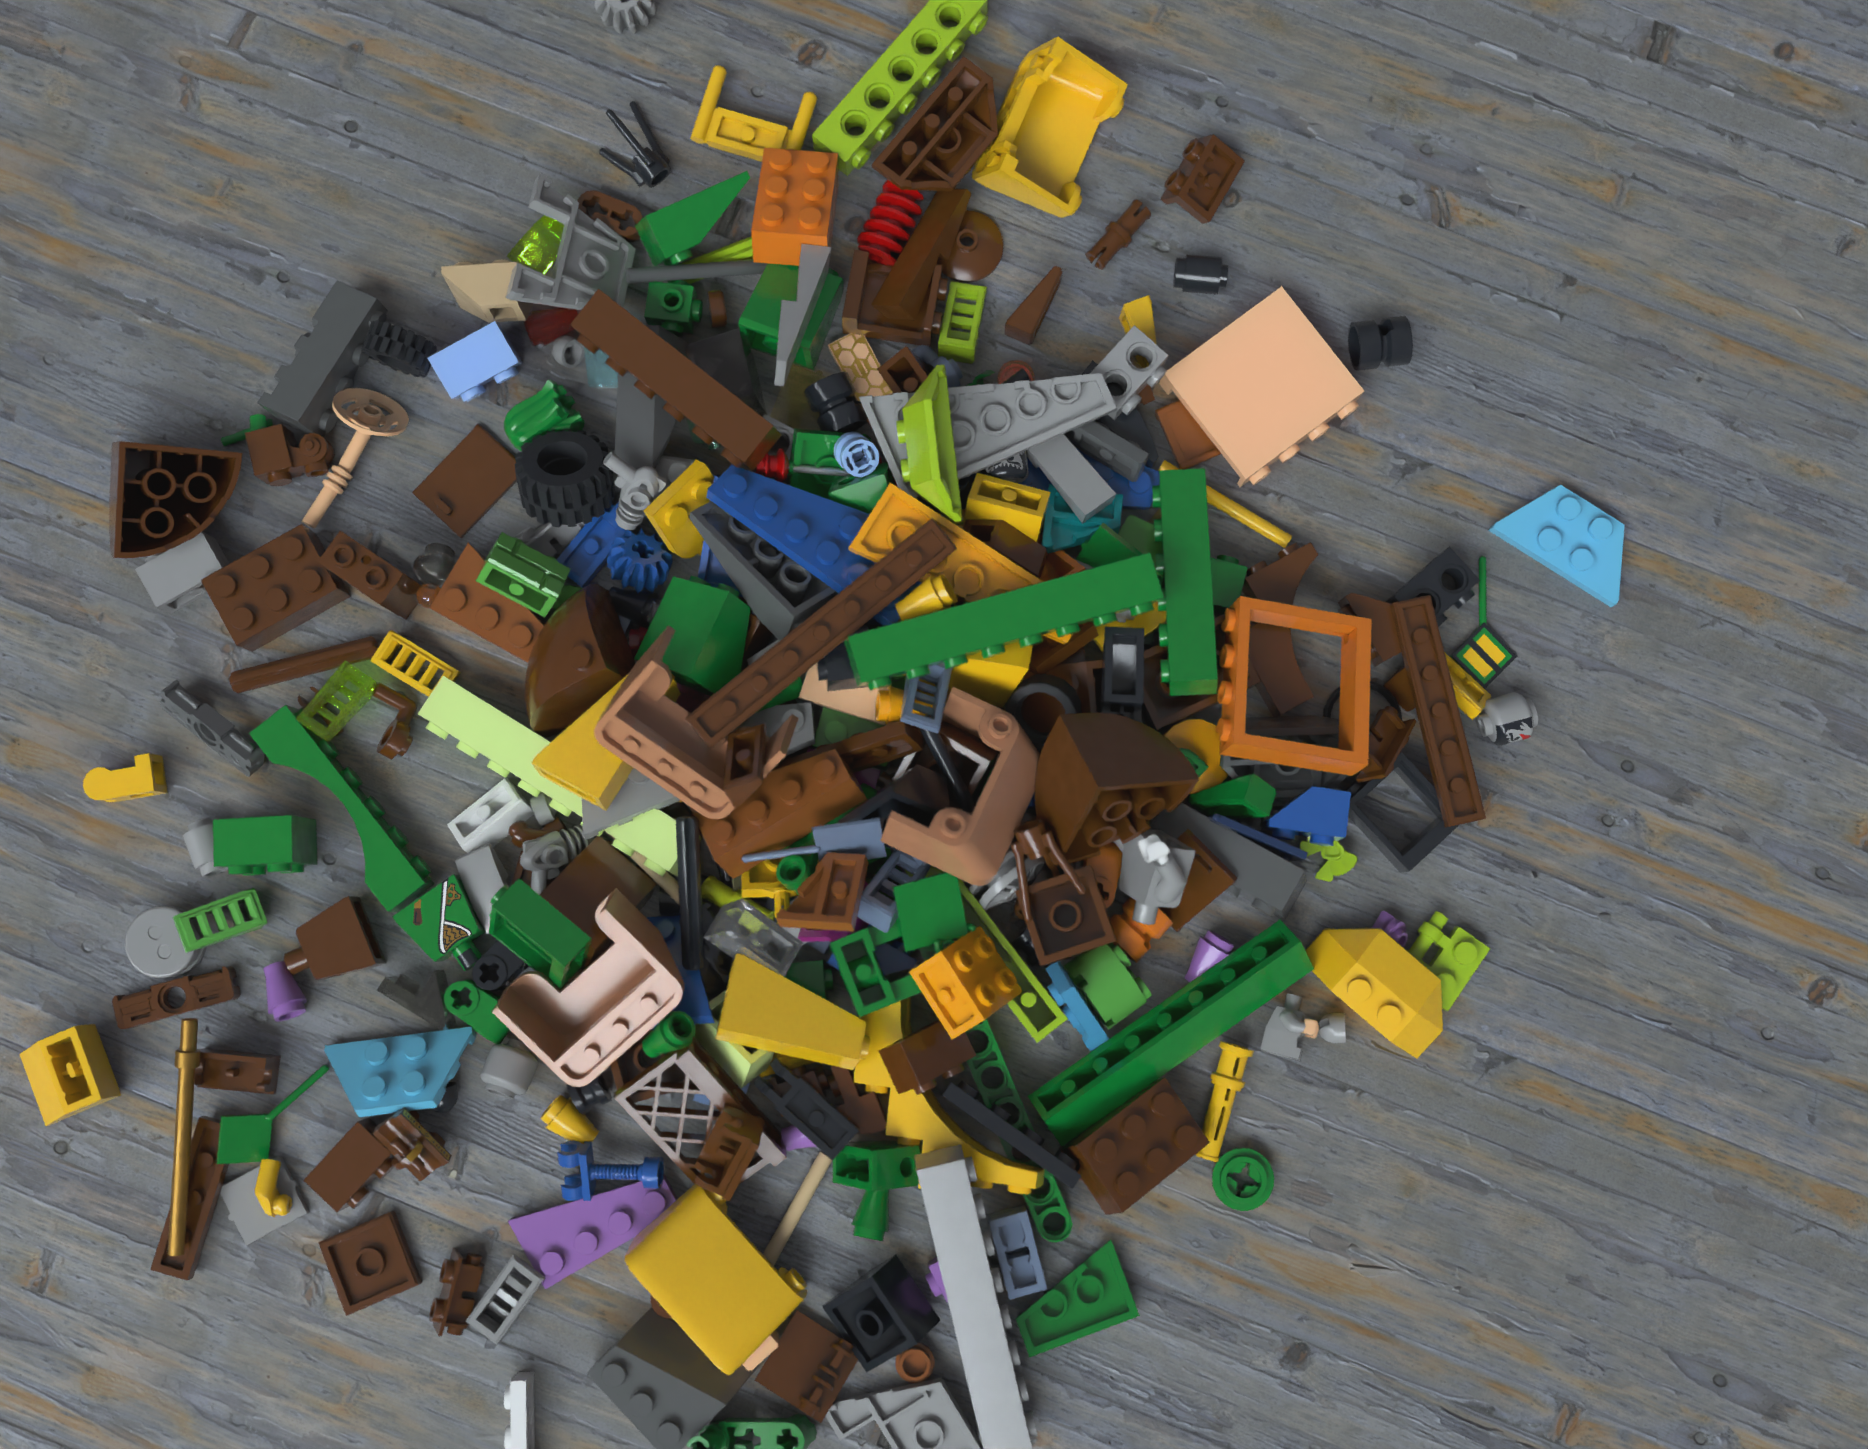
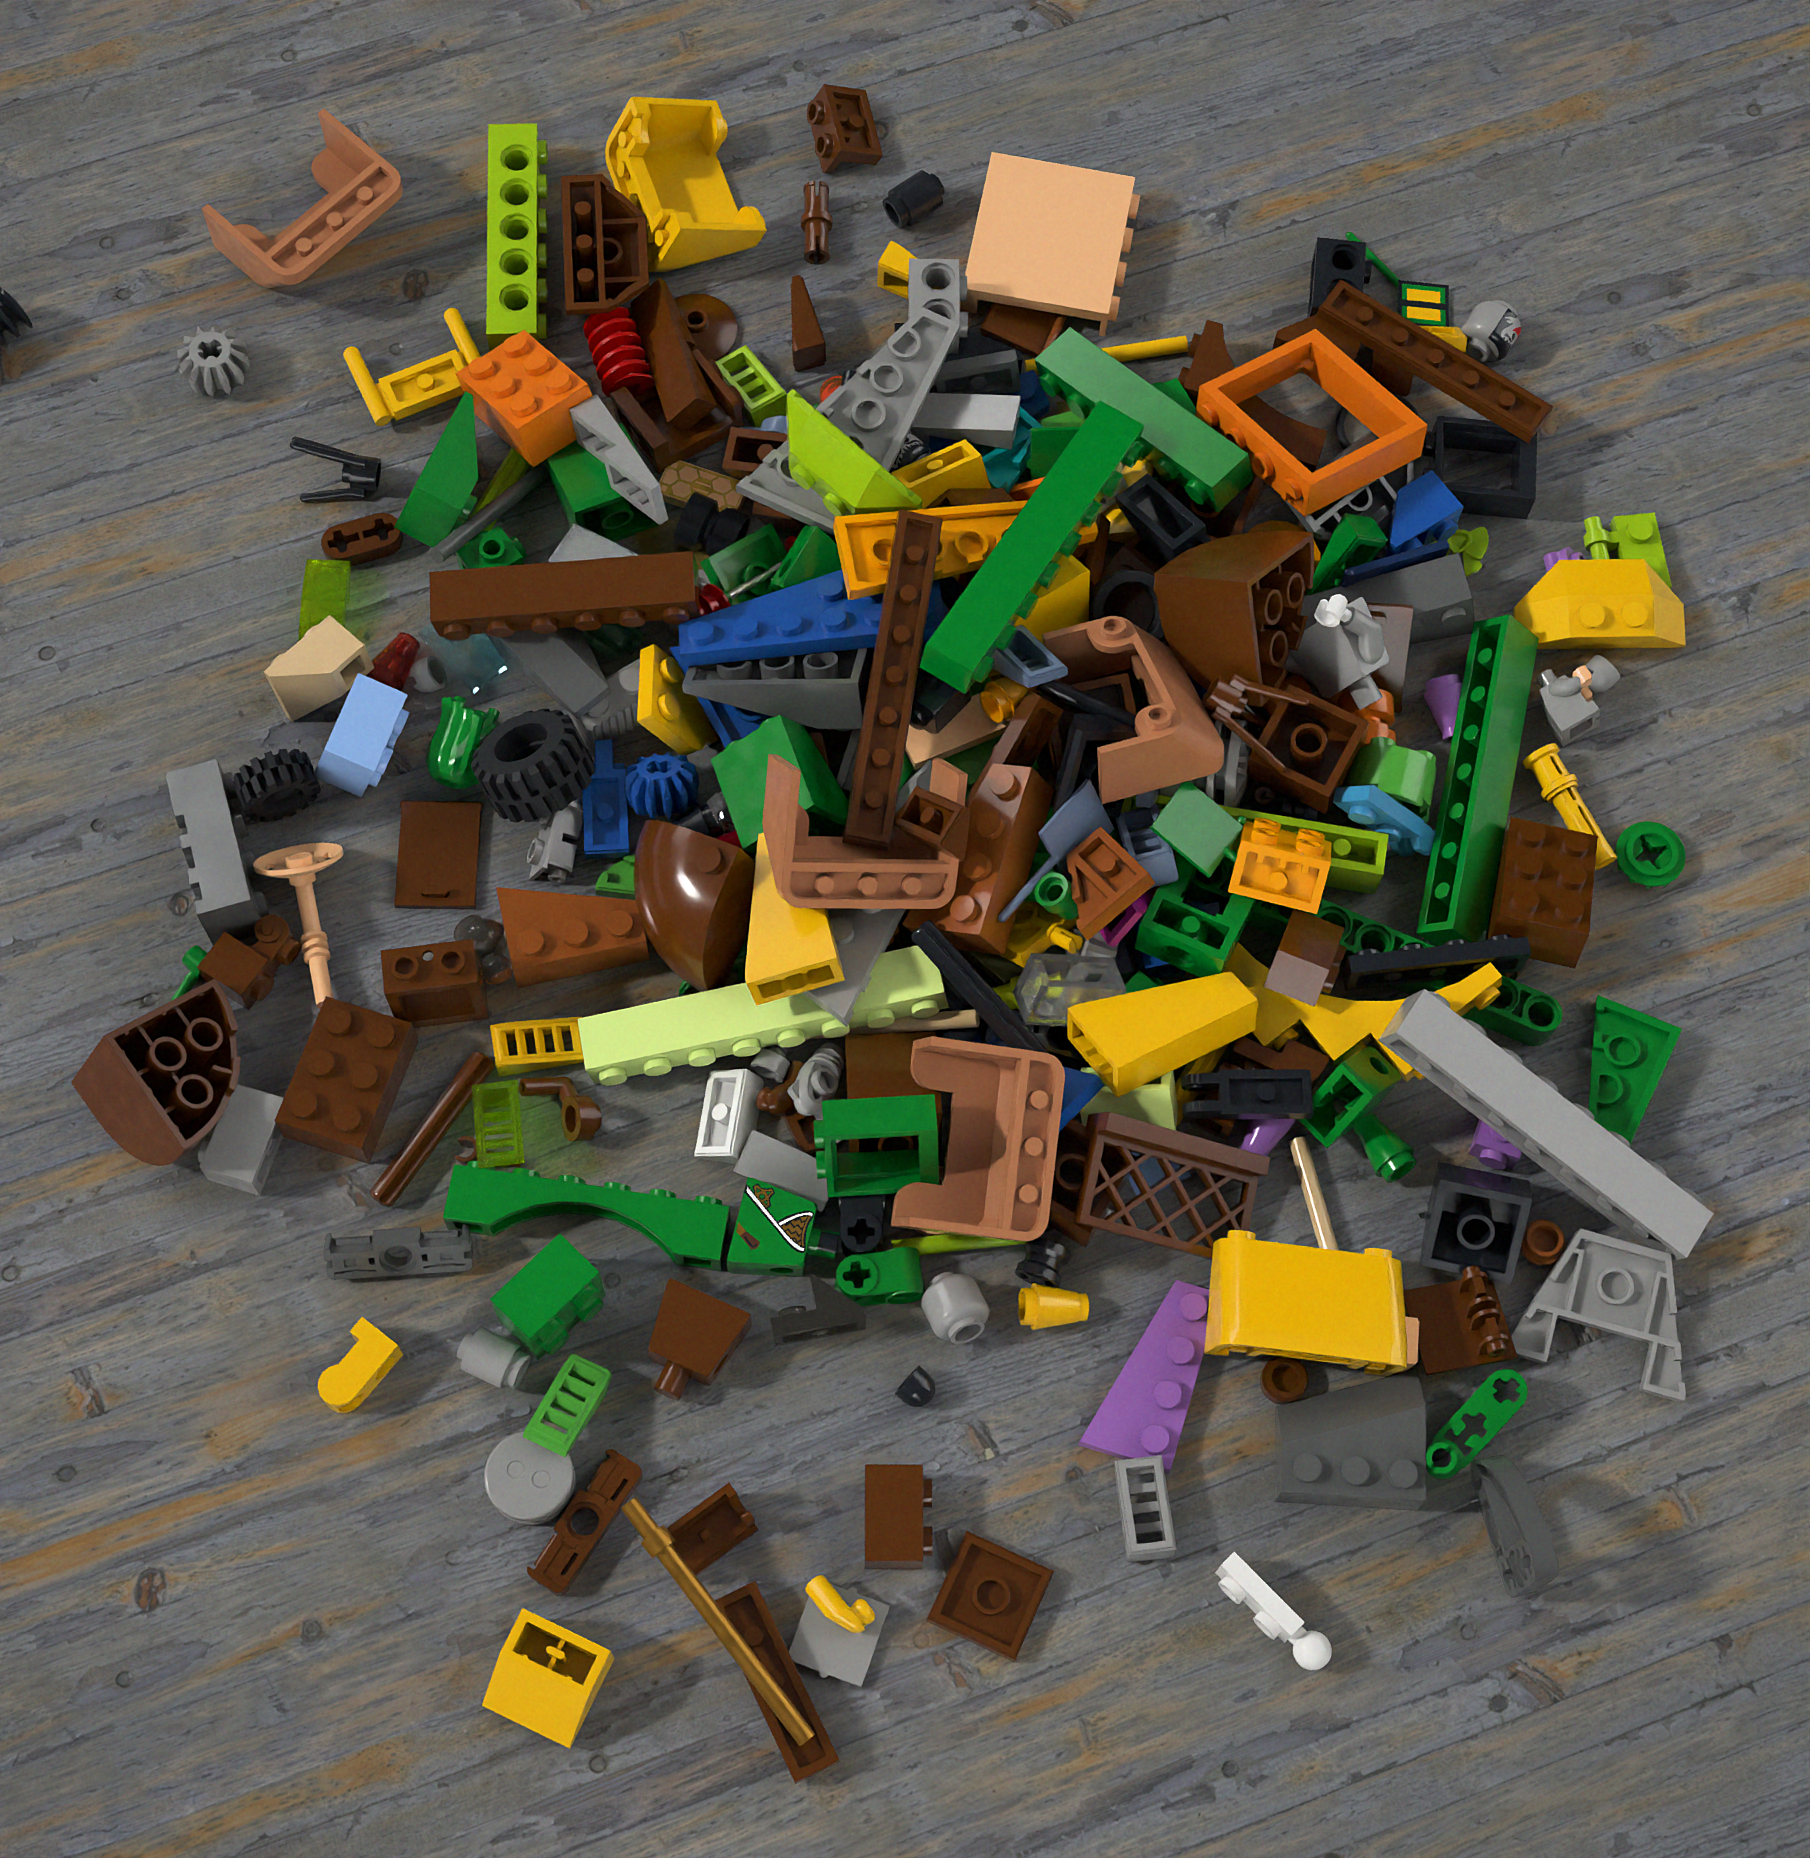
camera: 45 degrees left, 15 degrees down
(248, 1136) = (770, 1575): green piece -> none
(283, 994) = (685, 1426): medium lavender cone -> none
(399, 1070) = (856, 1395): medium azure wing -> none
(412, 1144) = (933, 1441): reddish brown hips -> none
(457, 1276) = (1080, 1529): reddish brown hinge -> none
(523, 574) = (574, 869): bright green brick -> none
(584, 1184) = (1110, 1358): blue bar -> none
(587, 258) = (384, 578): light grey wing -> none
(638, 490) = (614, 716): light grey piece -> none
(670, 1034) = (1078, 1122): green cone -> none
(716, 308) = (531, 536): reddish brown tile -> none
(728, 1151) = (1219, 1183): reddish brown hinge -> none
(849, 449) = (774, 538): light blue wheel -> none
(929, 597) = (954, 576): yellow cone -> none
(1017, 1251) = (1543, 1055): sand blue brick -> none
(1374, 343) = (1110, 136): black wheel -> none
(1391, 737) = (1425, 408): reddish brown hinge -> none
(1570, 540) = (1401, 169): medium azure wing -> none

